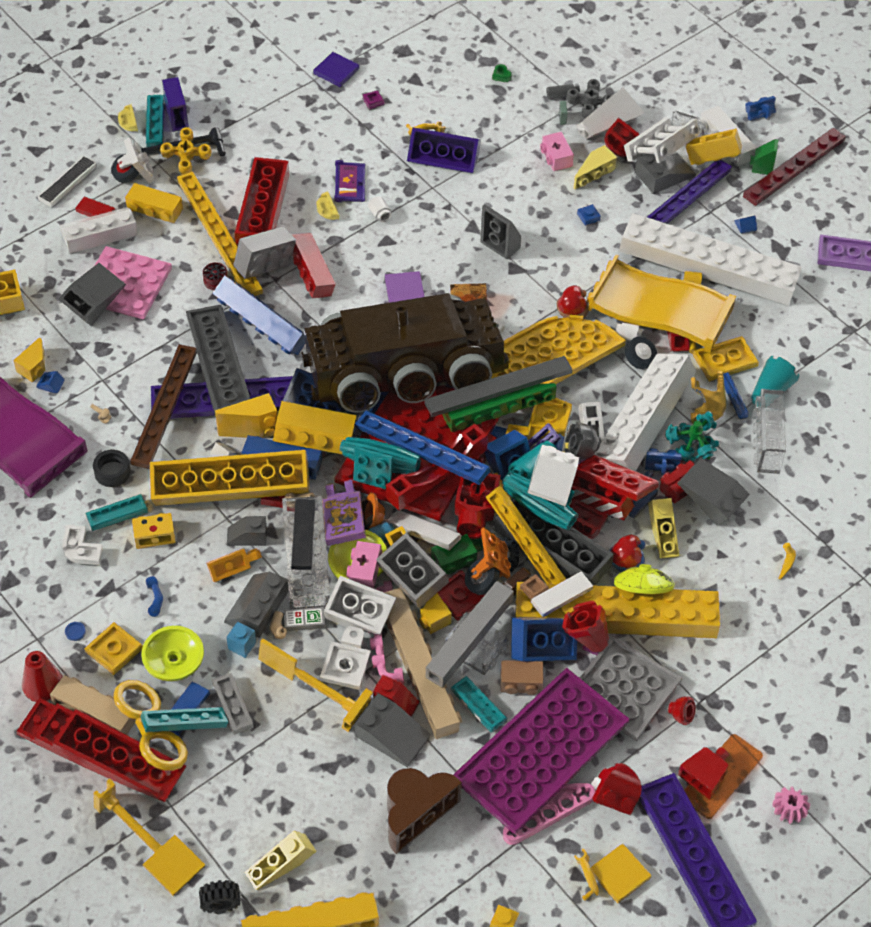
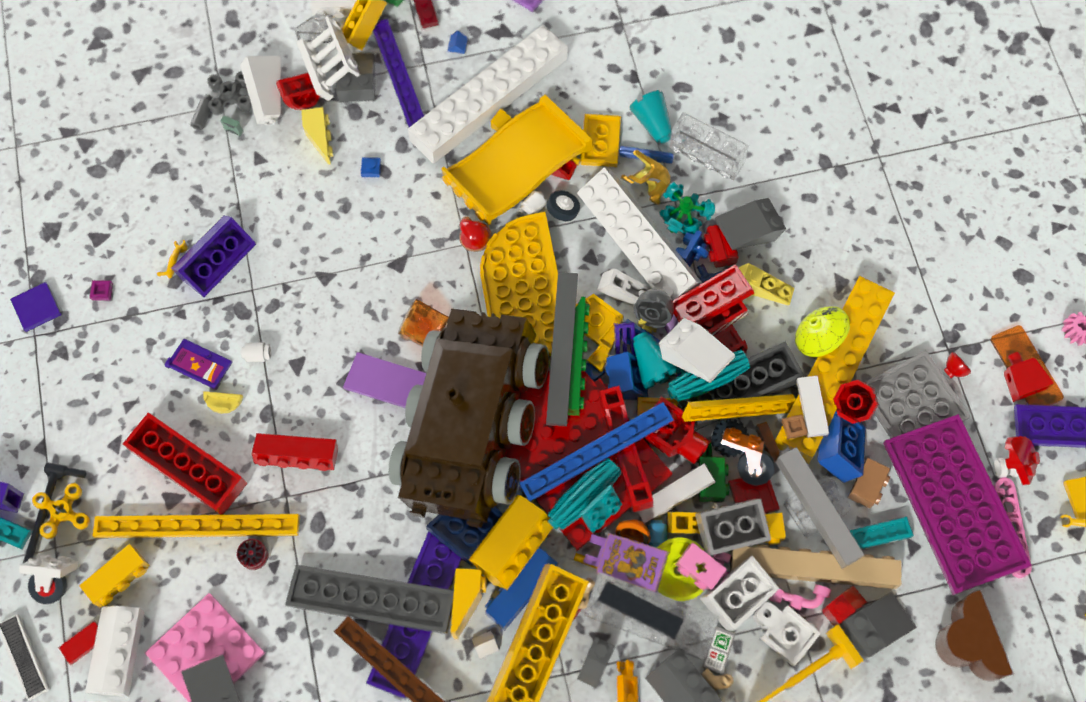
camera: 60 degrees left, 15 degrees up
(261, 315) = (334, 531): brick -> none
(264, 252) = (261, 491): light grey brick -> none
(499, 233) = (359, 258): dark grey slope -> none
(501, 73) = (142, 155): green tile -> none
(557, 151) = (278, 155): bright pink brick -> none
(628, 552) = (778, 329): red piece -> none
(789, 560) = (840, 205): yellow bar -> none

